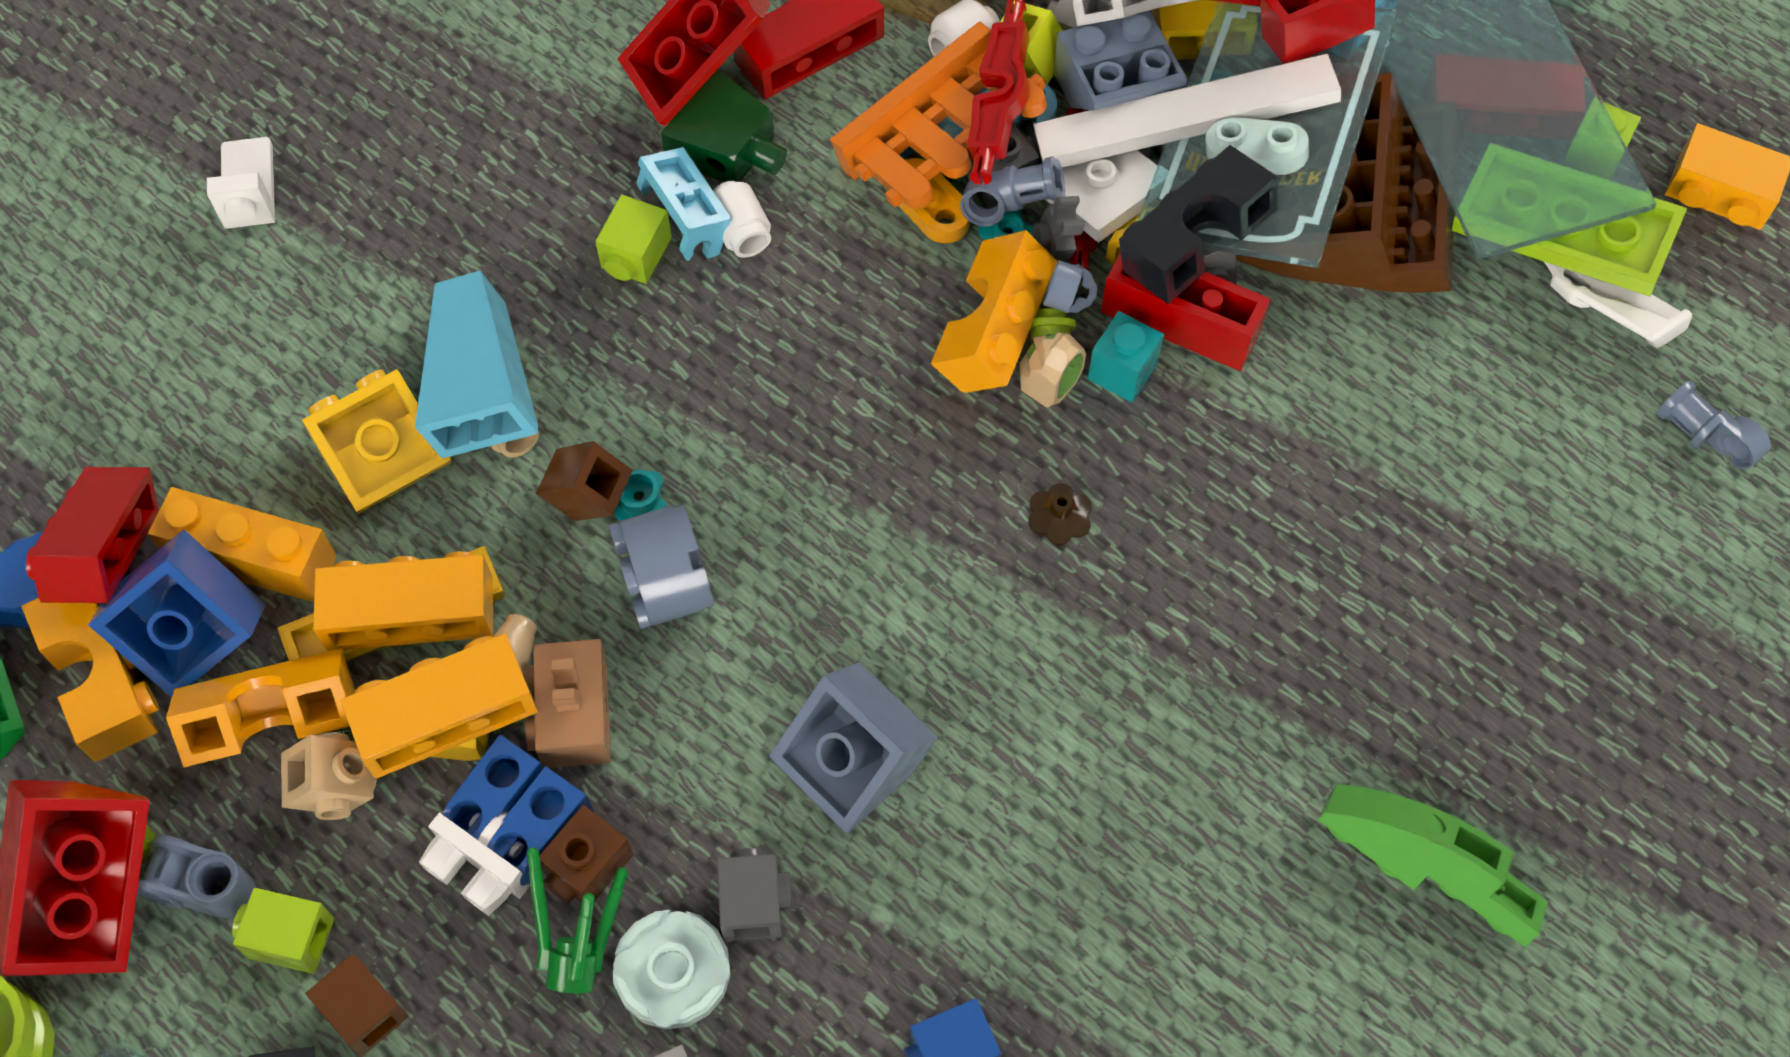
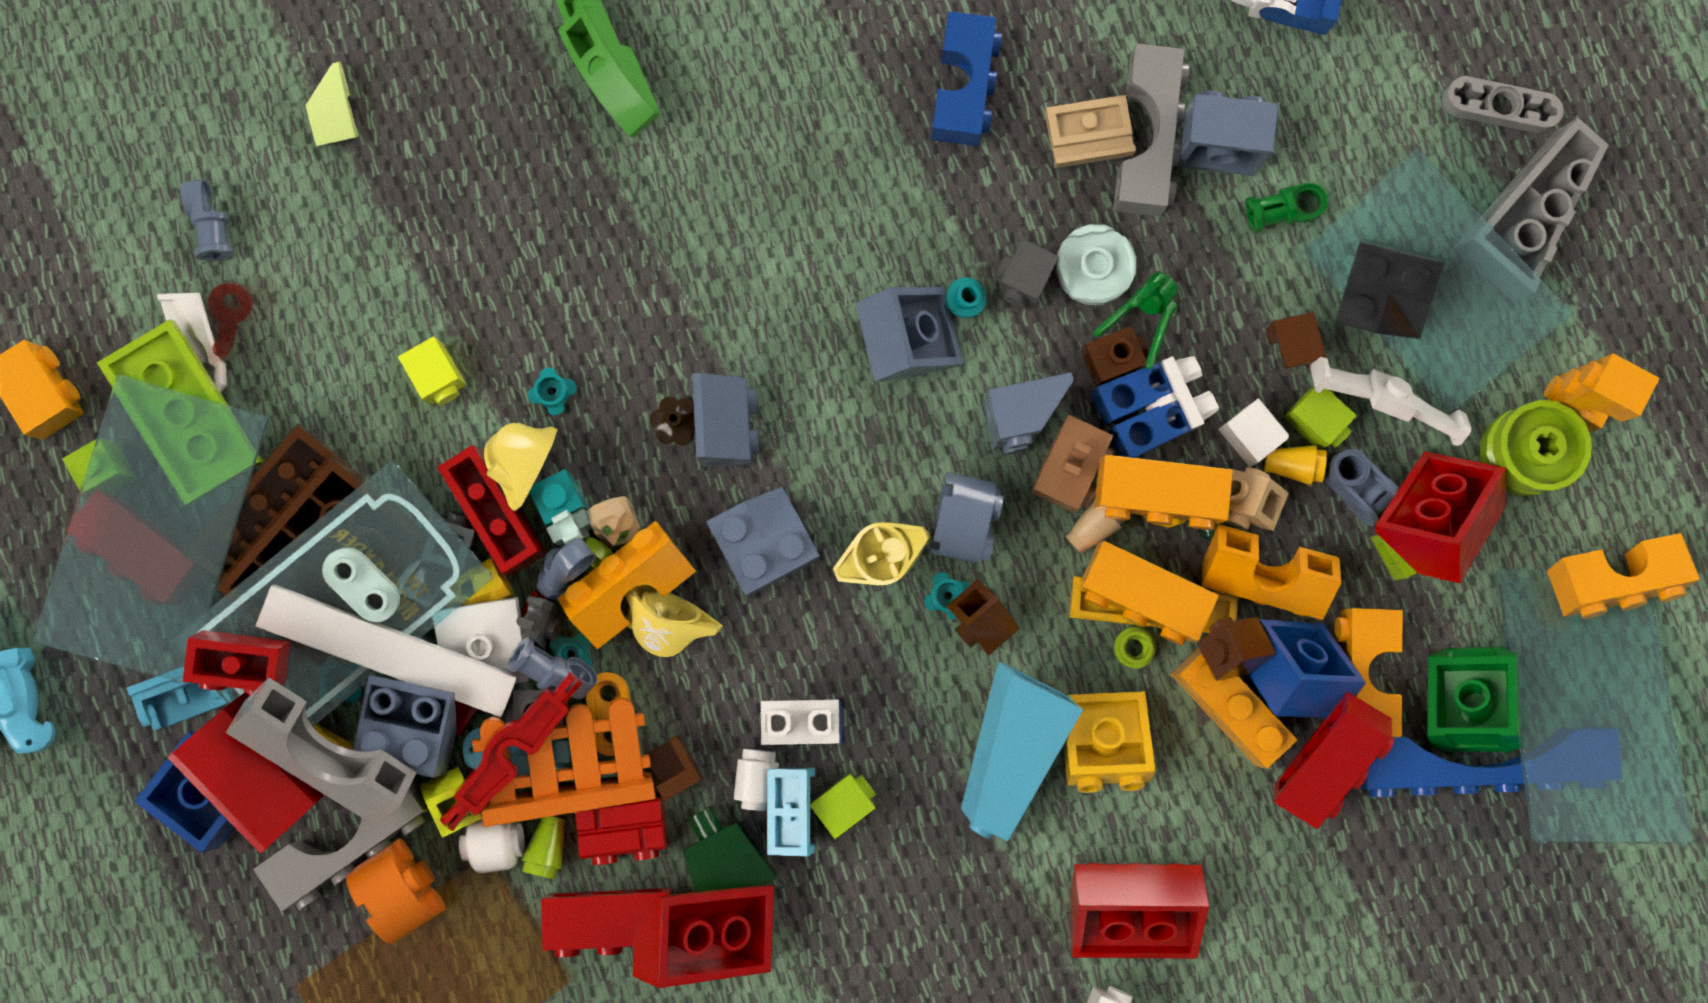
camera: 150 degrees left, 20 degrees up
(198, 999) = (1391, 397): none -> white plate
(261, 305) = (1137, 910): none -> red slope
(265, 578) = (1235, 647): none -> reddish brown brick
(288, 860) = (1300, 463): none -> yellow cone
(362, 862) = (1254, 433): none -> white panel
(388, 541) = (1147, 644): none -> lime plate
(661, 717) = (1021, 410): none -> sand blue slope
(720, 272) = (801, 722): none -> white hips
(733, 485) = (881, 553): none -> light yellow hat
(824, 837) = (958, 305): none -> teal plate
(826, 111) = (622, 830): none -> red brick
(827, 191) = (674, 767): none -> reddish brown panel
(877, 433) = (763, 540): none -> sand blue slope
(906, 49) = (545, 848): none -> lime cone
(922, 306) = (666, 623): none -> light yellow hat
(1004, 520) = (723, 420): none -> sand blue slope
(1089, 324) = (569, 527): none -> light aqua plate
(1197, 358) = (516, 458): none -> light yellow hat
(1214, 451) = (540, 391): none -> teal plate
(1223, 194) = (414, 550): black arch -> none
(1352, 408) = (433, 372): none -> neon yellow brick
(1606, 349) = (228, 316): none -> clear red plate
(1690, 617) = (330, 108): none -> yellowish green slope

